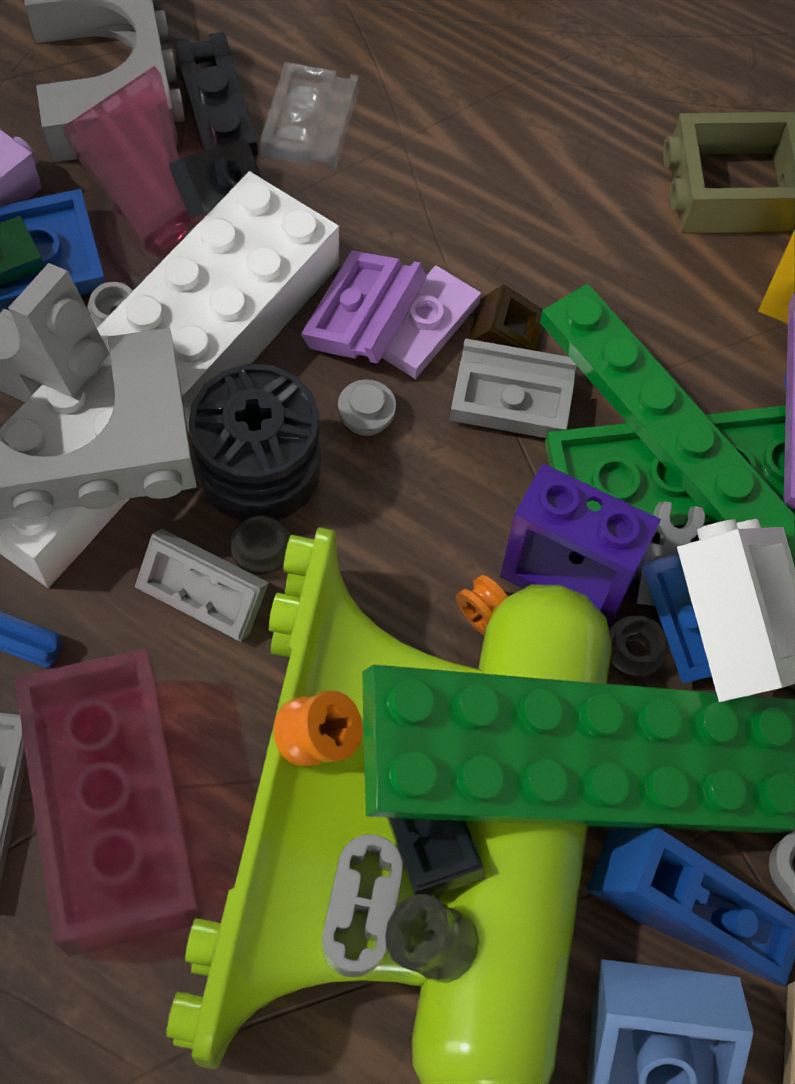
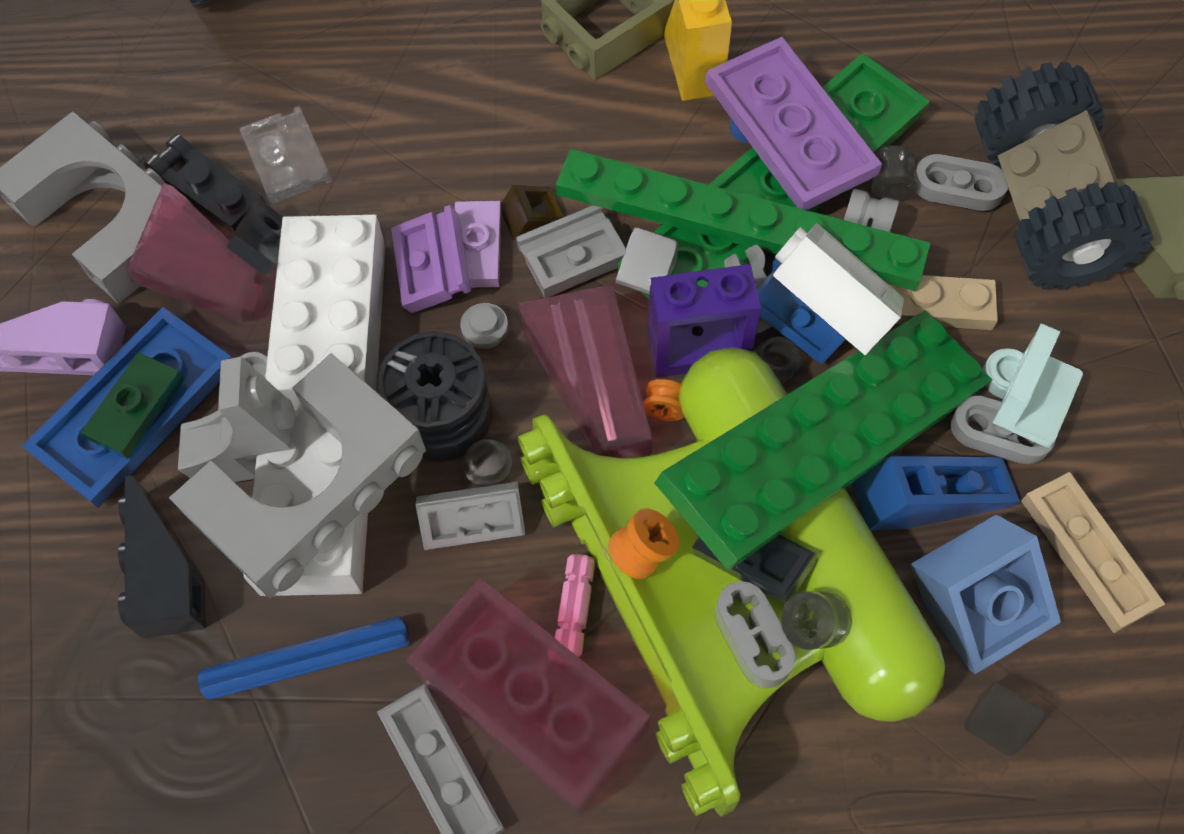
camera: 30 degrees left, 0 degrees up
(228, 748) = (575, 602): none -> bright pink axle
(437, 517) = (591, 367): none -> clear pink slope
(576, 447) = (646, 257): none -> light grey slope

